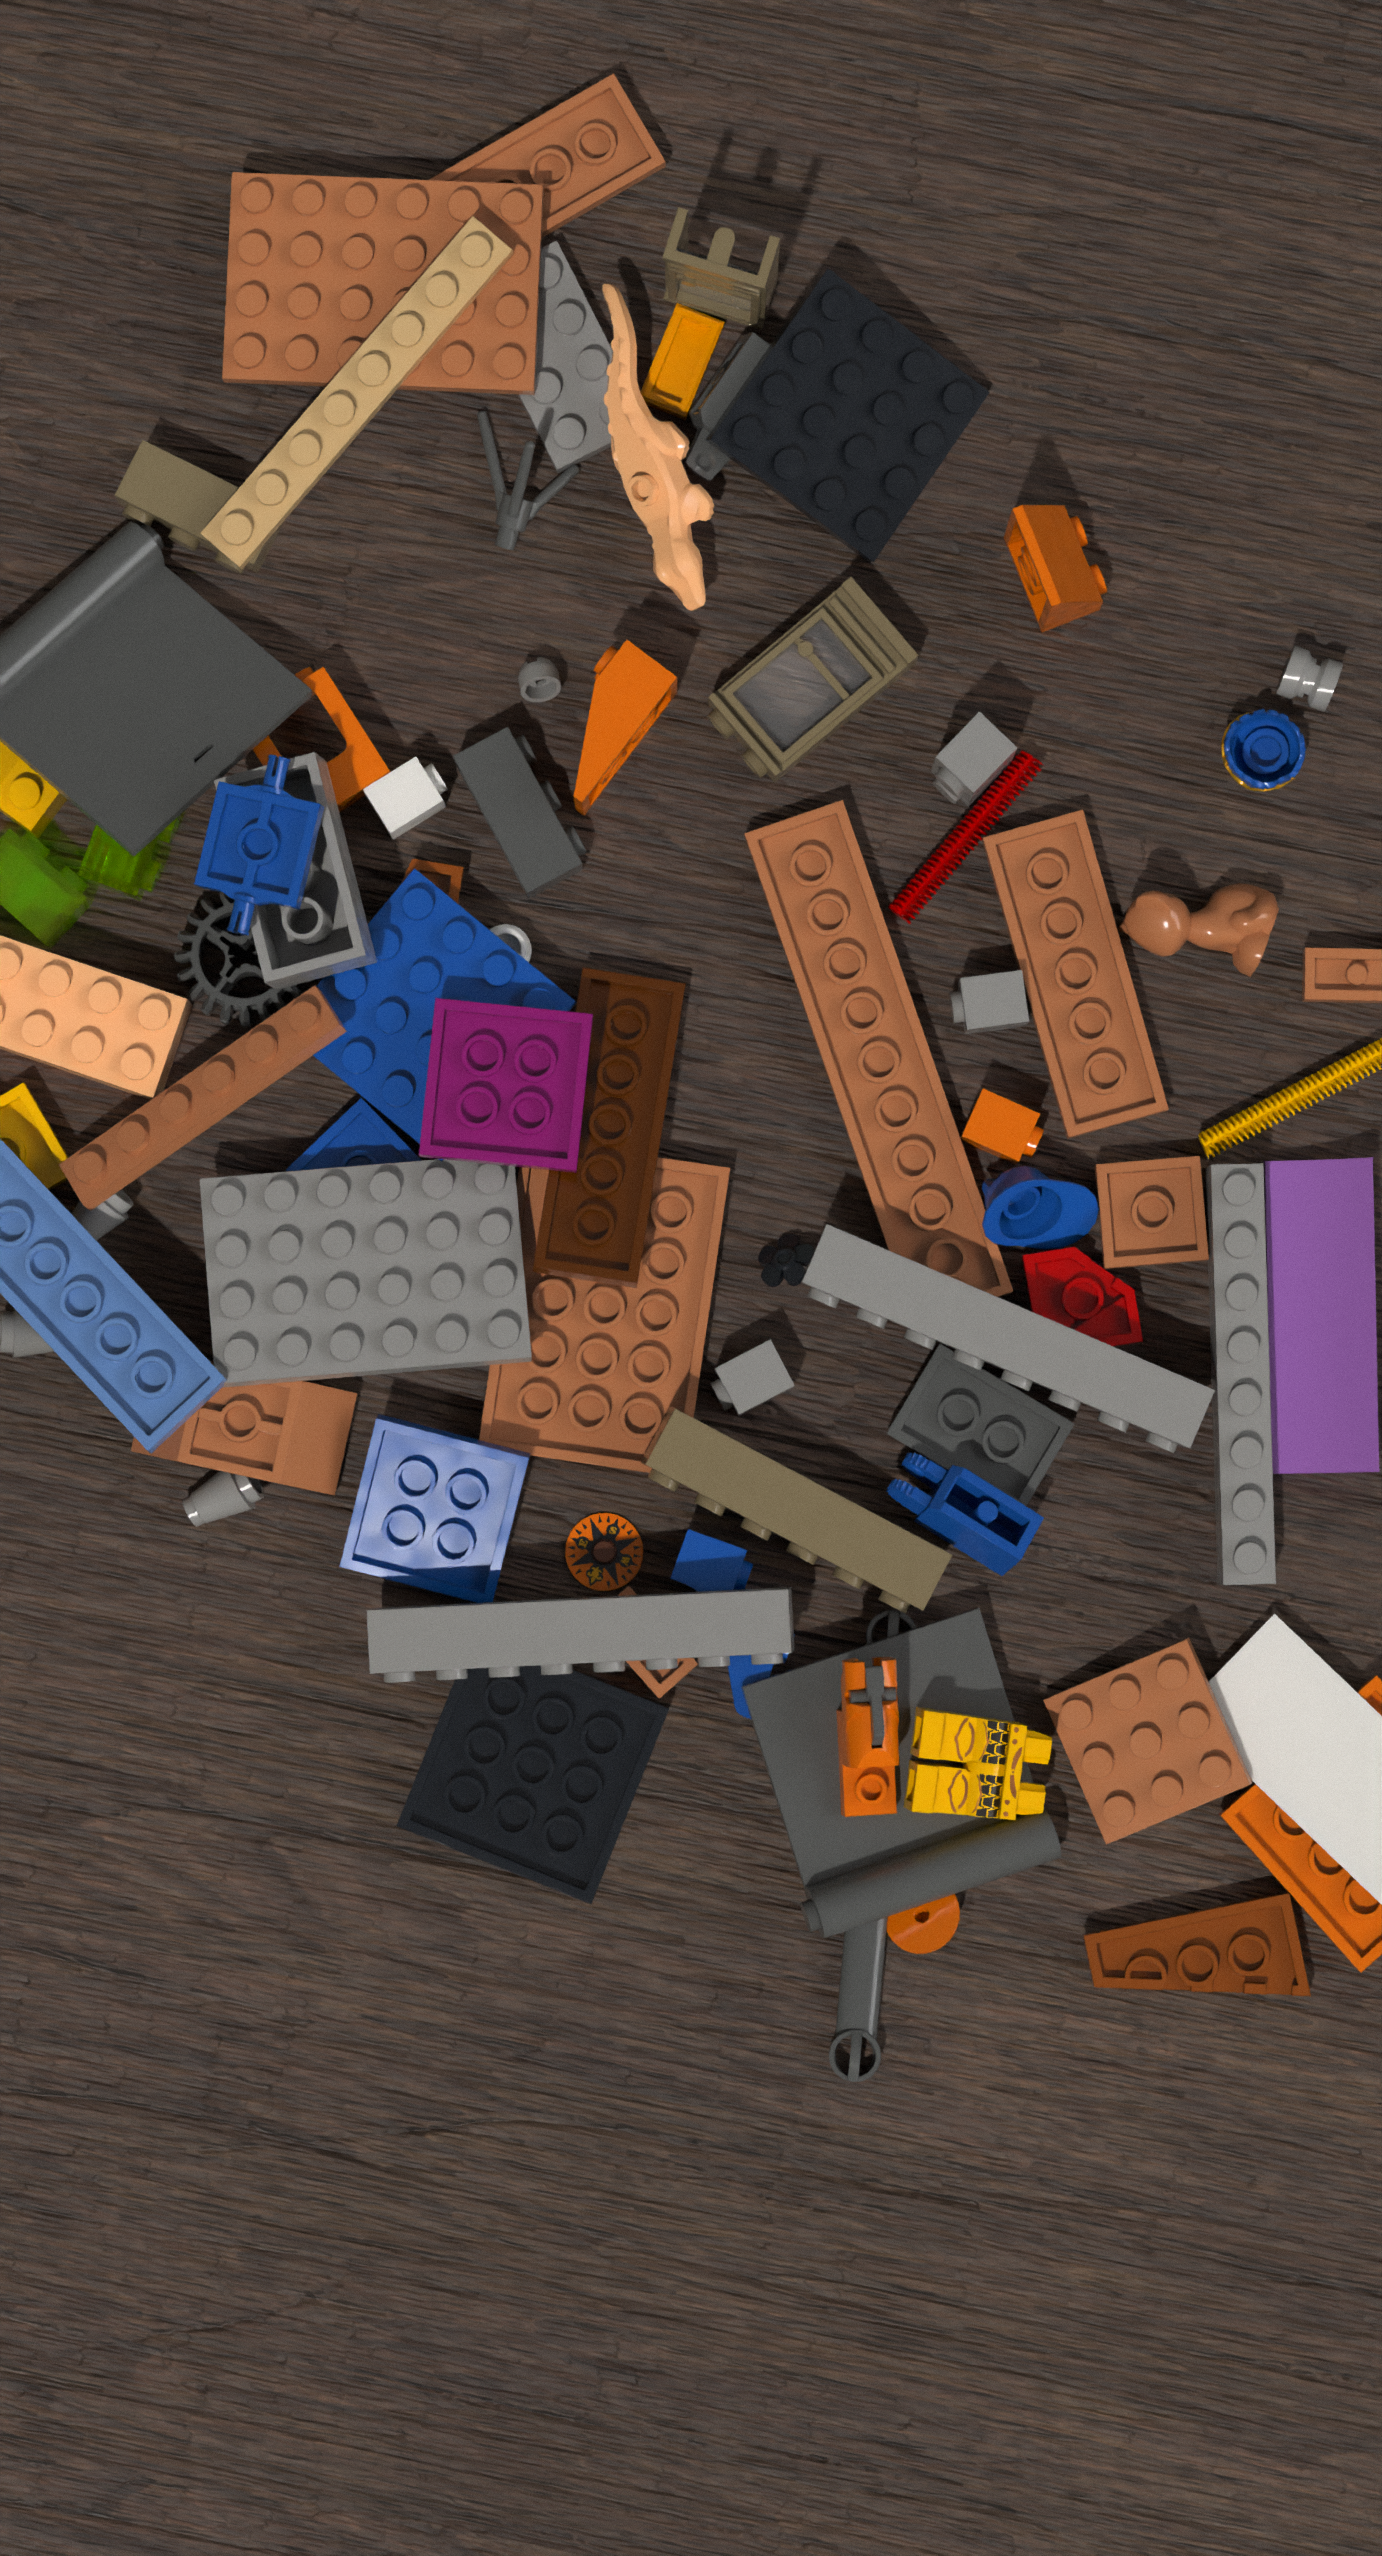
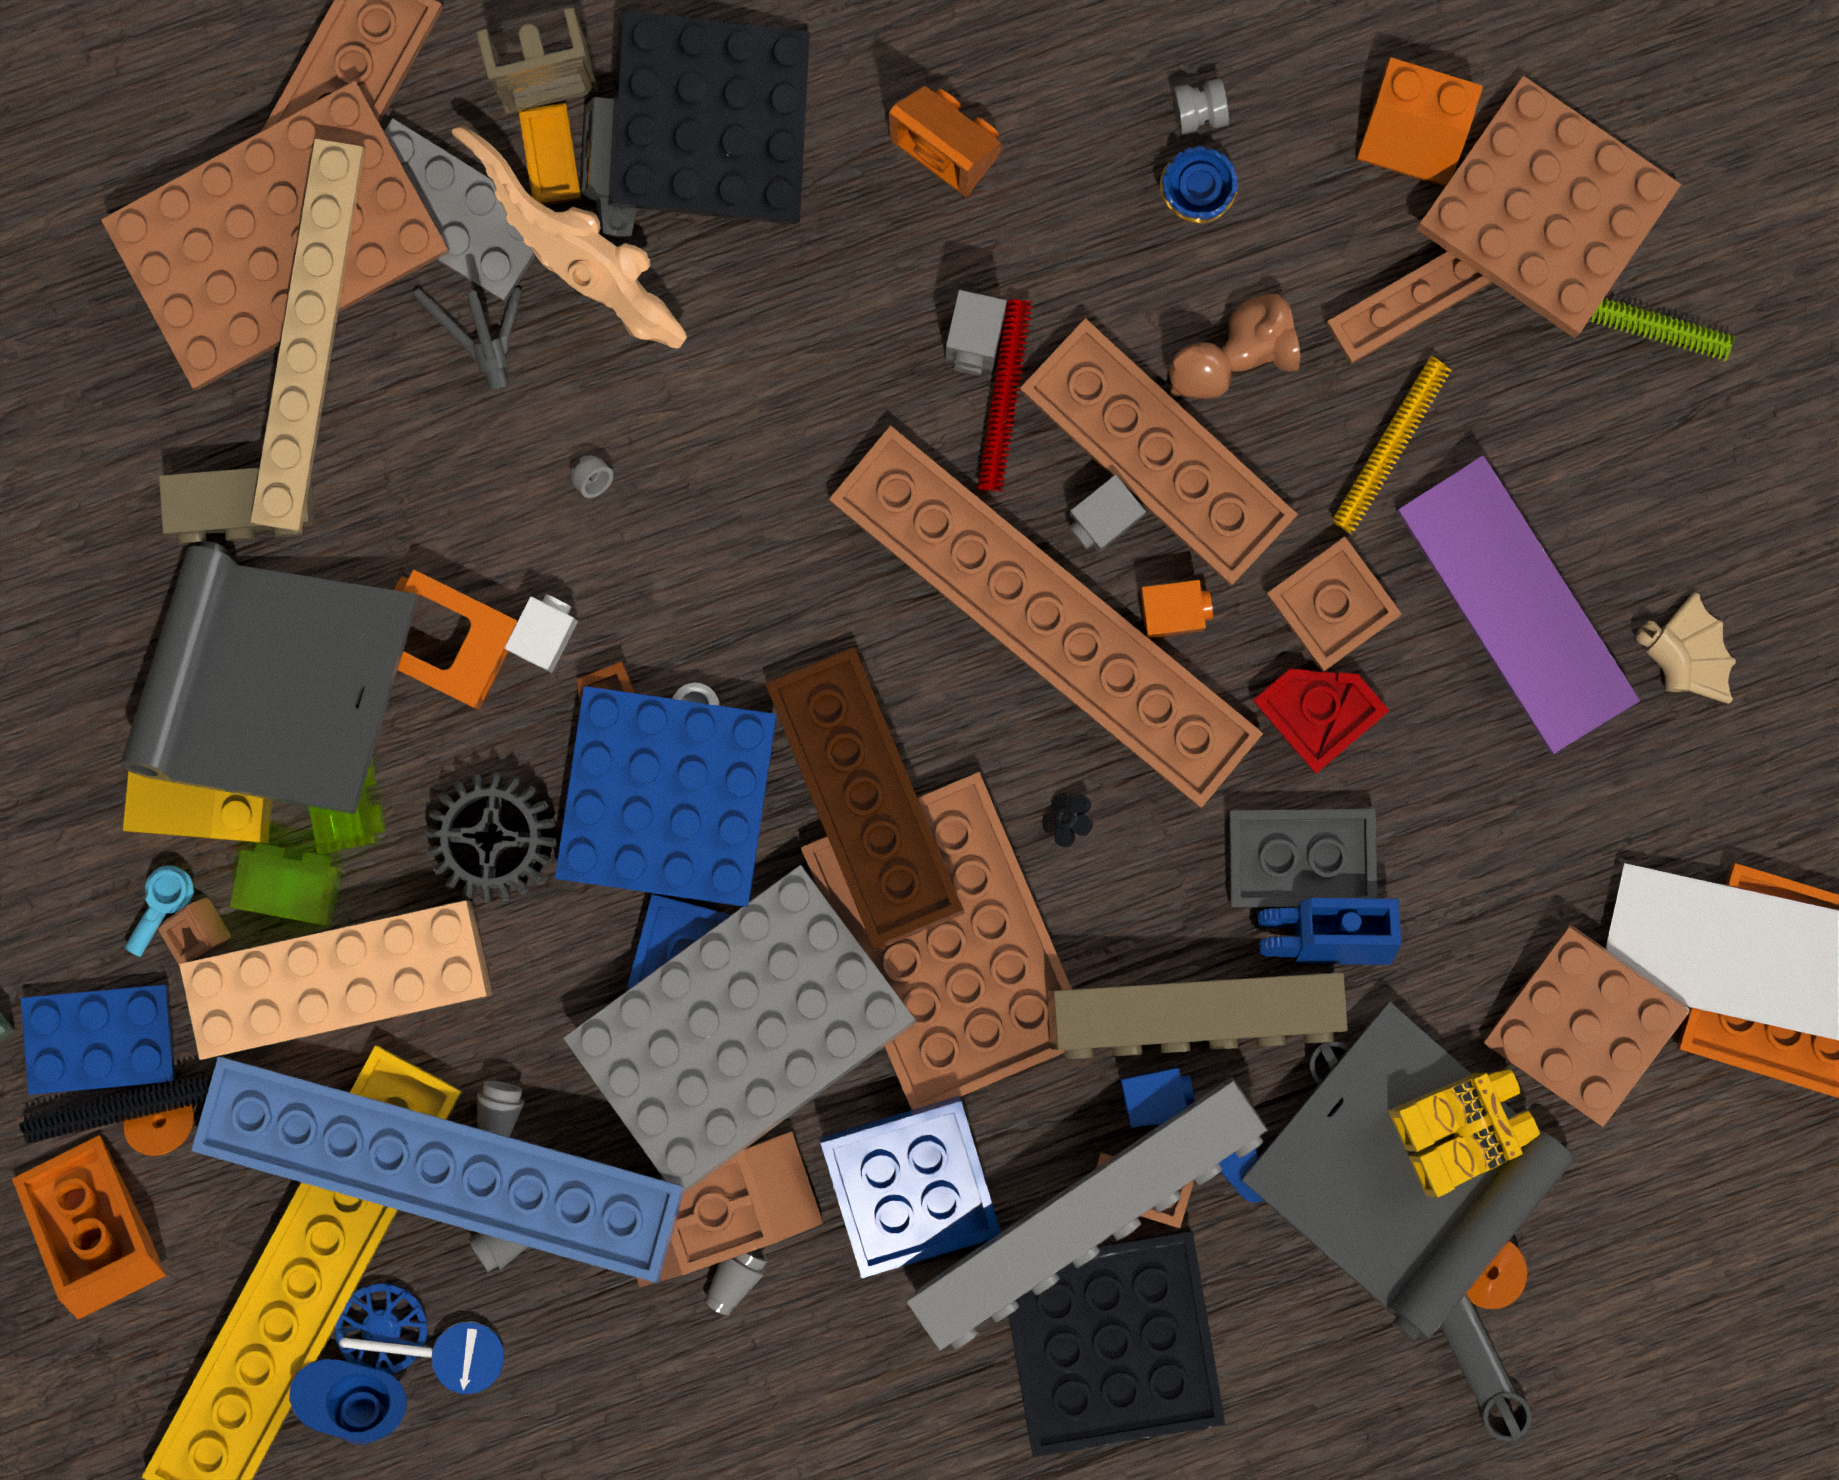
camera: 30 degrees left, 0 degrees up
(202, 1098) = (526, 972): nougat plate -> none
(259, 845) = (450, 744): blue plate -> none
(331, 925) = (491, 746): light grey brick -> none
(506, 1085) = (763, 815): magenta plate -> none
(520, 811) = (640, 589): dark grey brick -> none
(604, 1551) = (1063, 1137): piece -> none
(625, 704) = (672, 453): orange slope -> none
(751, 1379) = (1098, 929): light grey brick -> none
(811, 681) = (808, 346): dark tan door -> none
(868, 1737) = (1366, 1158): orange plate -> none
(1008, 1337) = (1282, 773): light grey brick -> none
(1035, 1210) = (1241, 658): blue piece -> none
(1215, 1949) = (1743, 1154): dark orange wing -> none
(1240, 1374) = (1483, 691): light grey brick -> none

